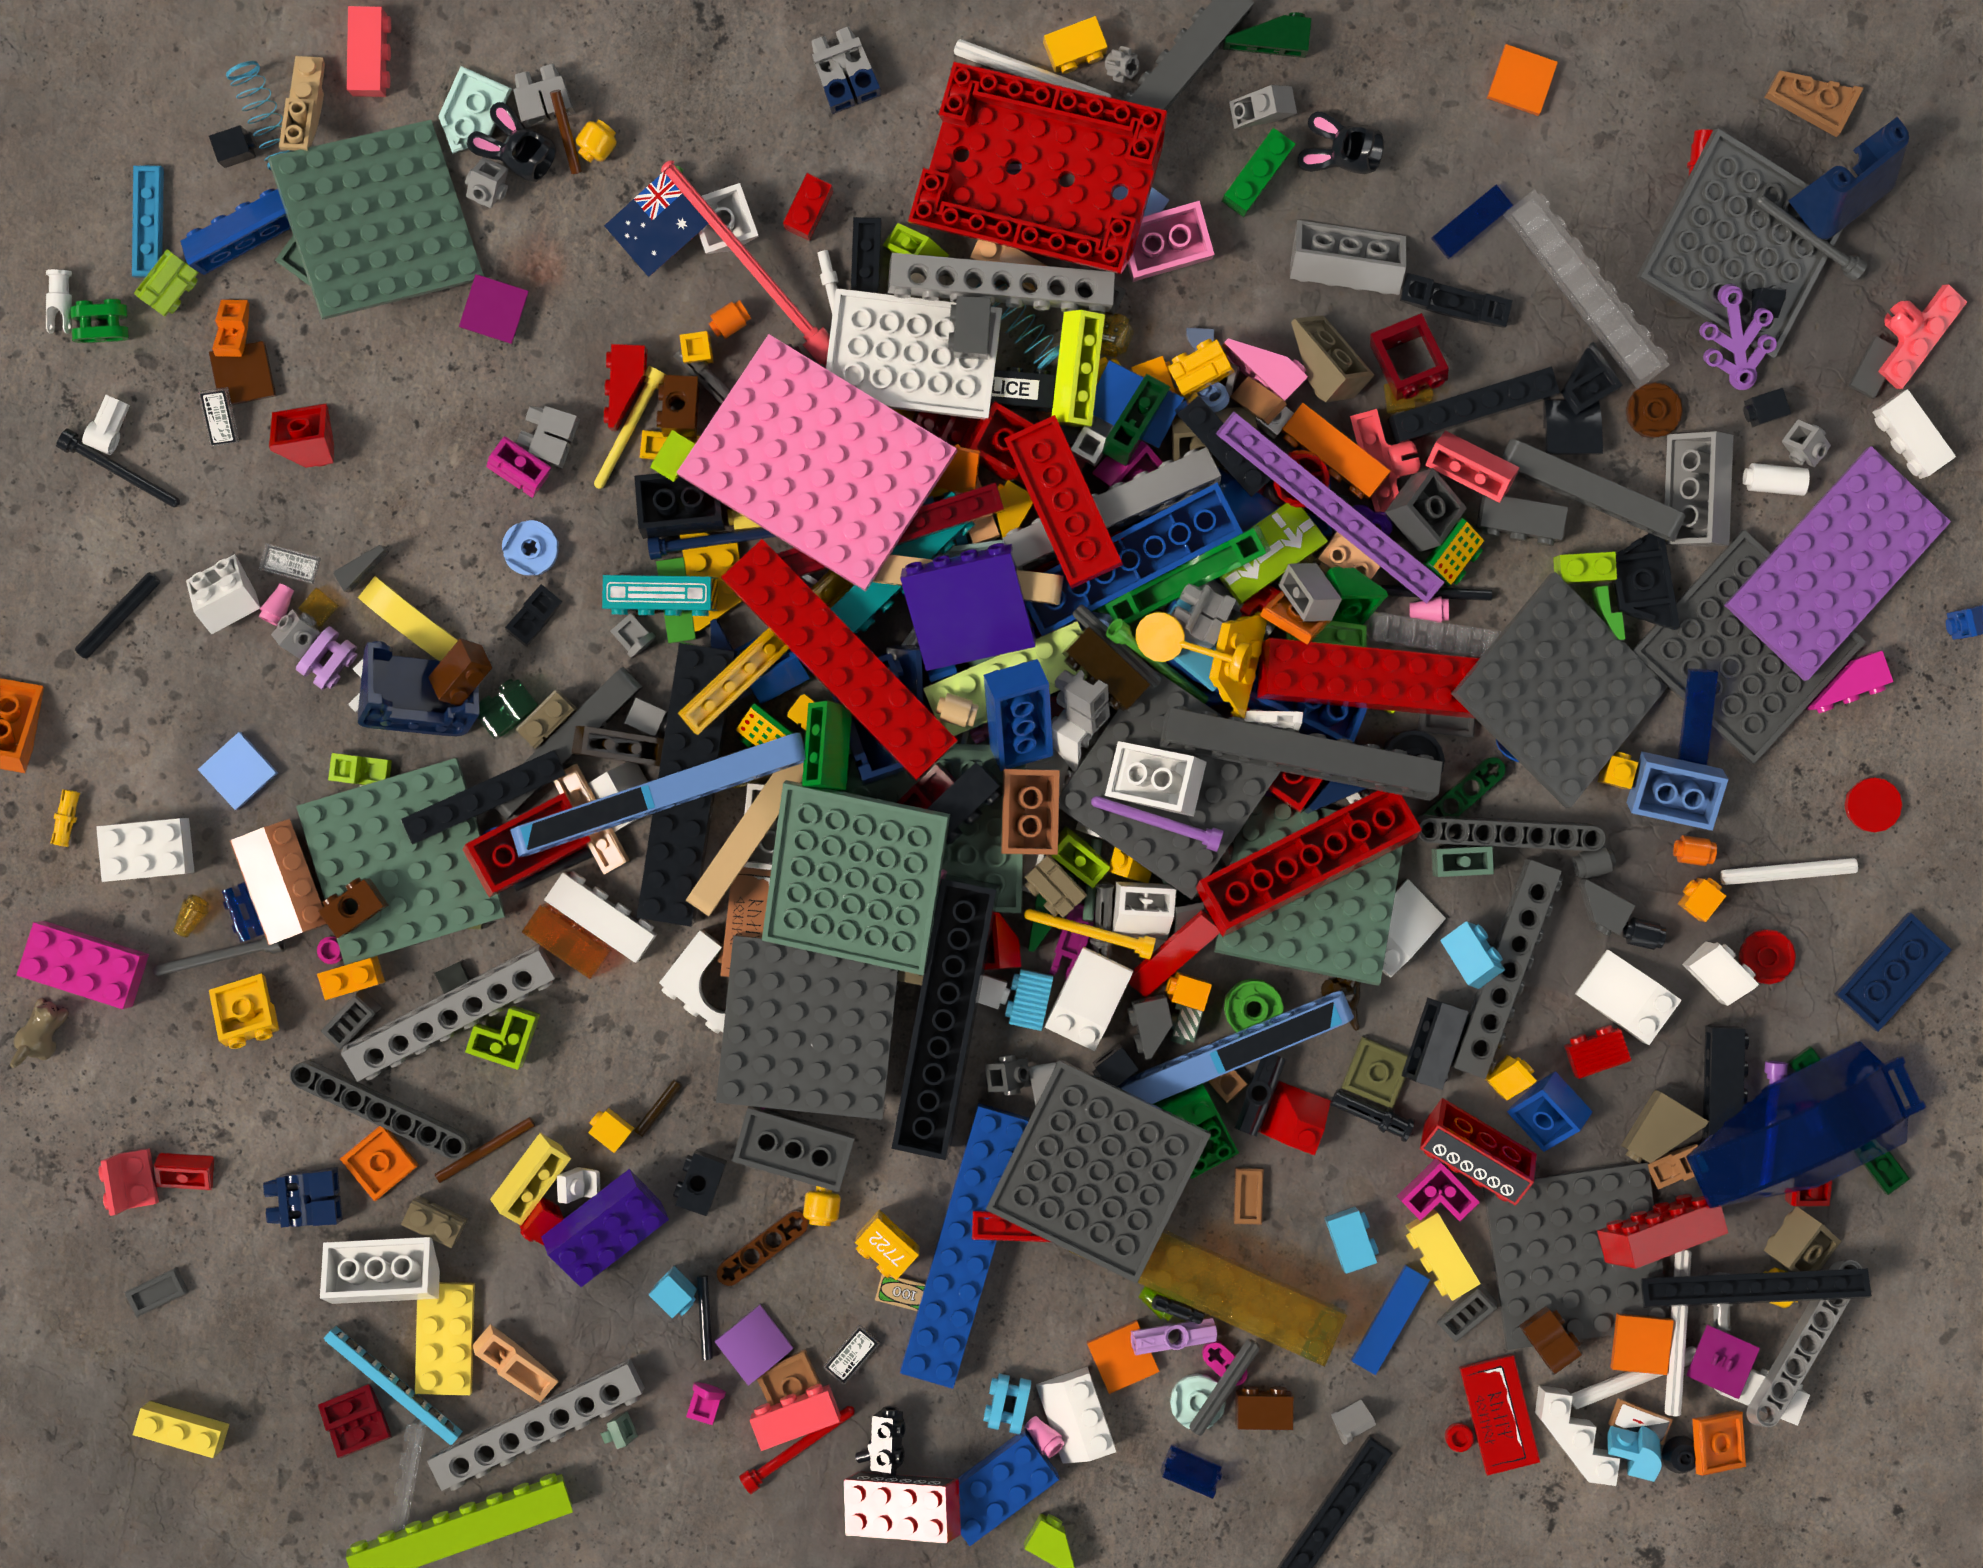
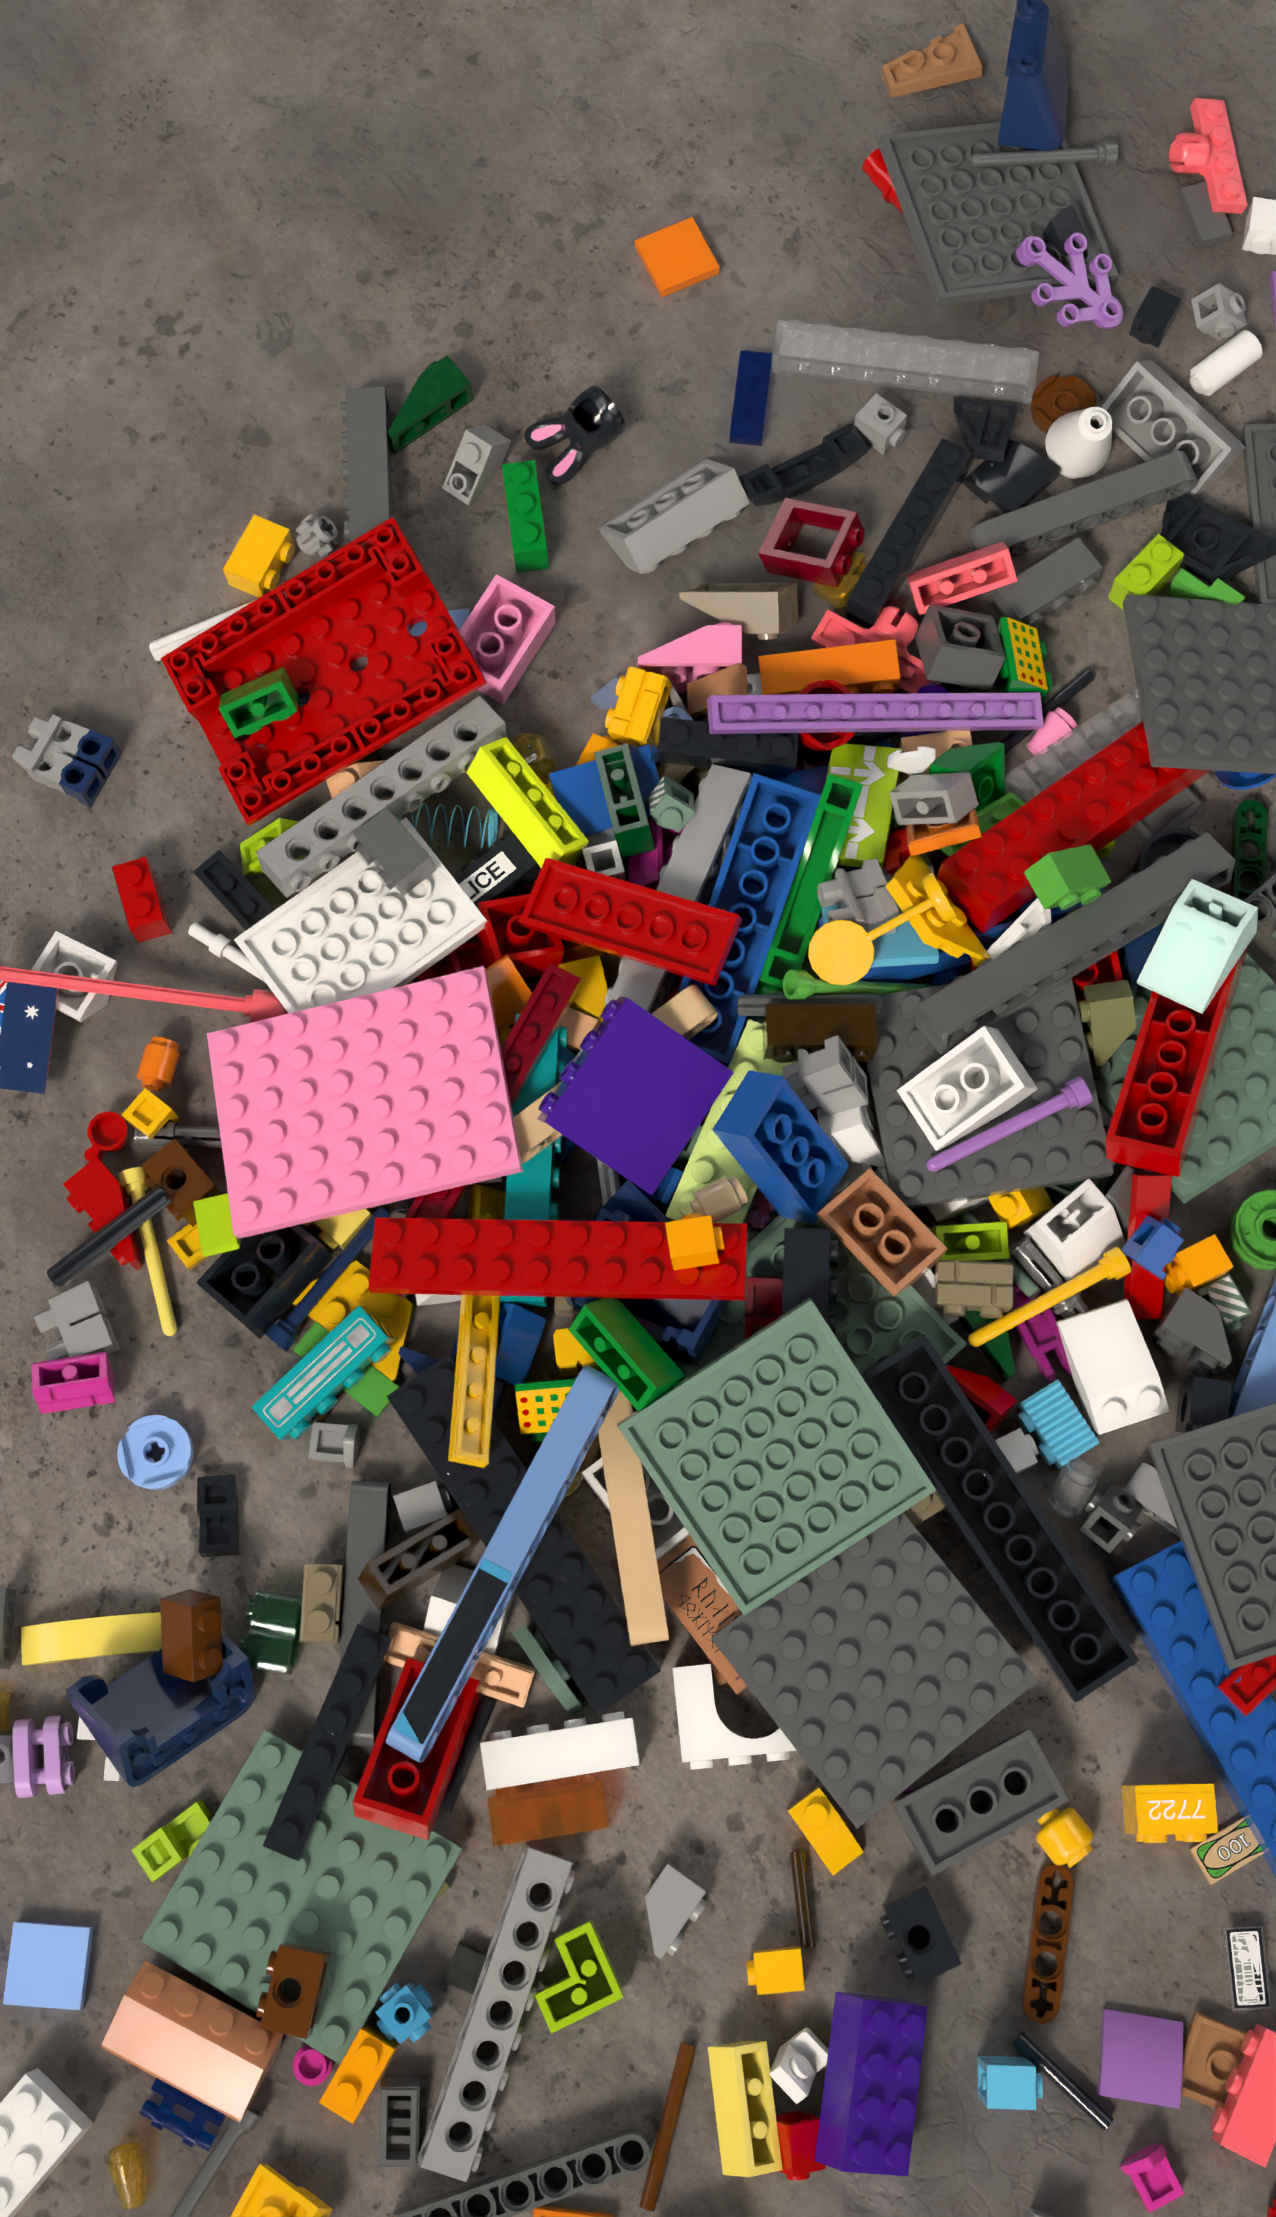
camera: 35 degrees left, 15 degrees down
(411, 970) = (416, 2001): none -> dark azure brick
(586, 1046) = (669, 1906): none -> light grey slope
(610, 402) = (109, 1236): none -> black axle
(634, 871) = (552, 1672): none -> sand green wing
(662, 334) = (107, 1134): none -> red piece
(701, 1085) = (825, 1830): none -> yellow slope
(916, 724) = (693, 1241): none -> light orange brick
(982, 152) = (259, 703): none -> green brick
(1004, 1040) = (1073, 1488): none -> clear brick
(1151, 453) = (668, 809): none -> sand green brick
(1173, 958) = (1154, 1245): none -> blue brick
(1278, 813) = (1109, 1017): none -> olive slope
(1323, 559) = (911, 762): none -> white tile
(1327, 716) = (1068, 877): none -> bright green brick
(1363, 823) = (1199, 945): none -> light aqua slope
(1529, 318) = (881, 424): none -> light grey brick
(1630, 436) = (1080, 442): none -> white cone

